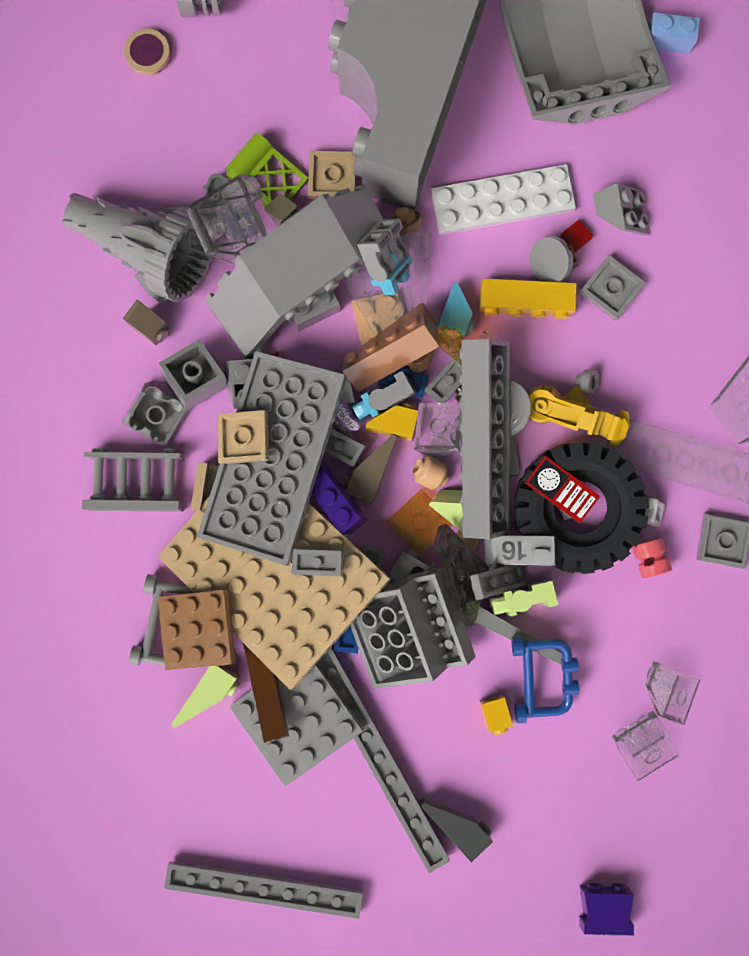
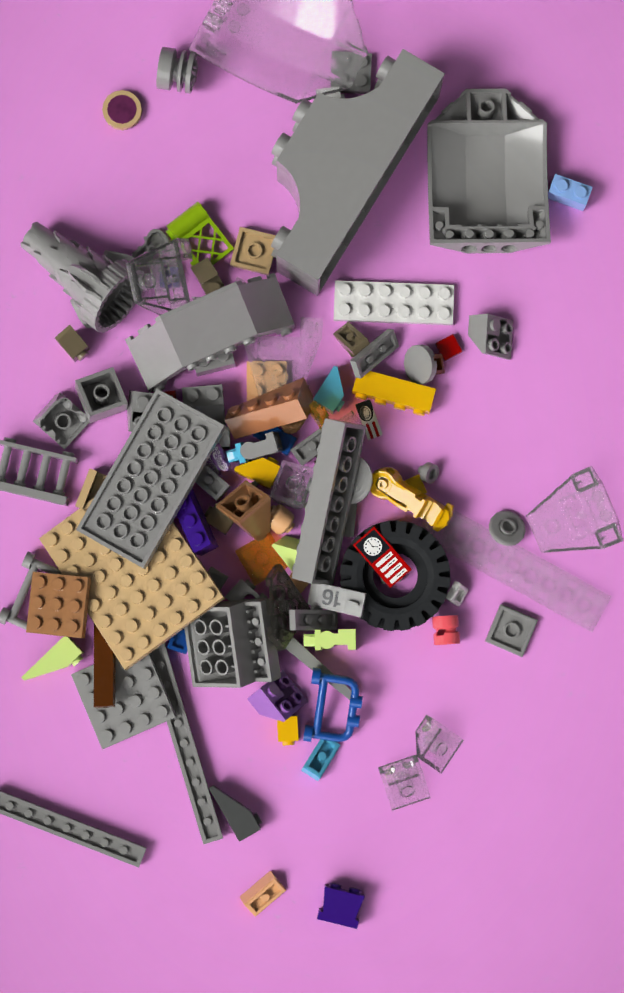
camera: 10 degrees right, 0 degrees up
(243, 437) = (131, 457): tan plate -> none
(316, 352) = (206, 400): none -> light grey slope
(317, 562) = (169, 571): light grey plate -> none
(386, 255) = (281, 334): light grey hips -> none
(394, 468) = (248, 509): none -> medium nougat slope
(410, 220) = (306, 305): medium nougat plate -> none
(465, 250) = (351, 339): none -> dark tan slope
(477, 683) = (278, 699): none -> medium lavender slope
(496, 258) = (374, 353): none -> light grey plate
(502, 331) = (369, 419): none -> sticker
(510, 914) = (262, 893): none -> light nougat slope
(541, 739) = (320, 758): none -> medium azure slope
(612, 287) = (467, 398): light grey plate -> none
(692, 425) = (507, 528): none -> light grey wheel

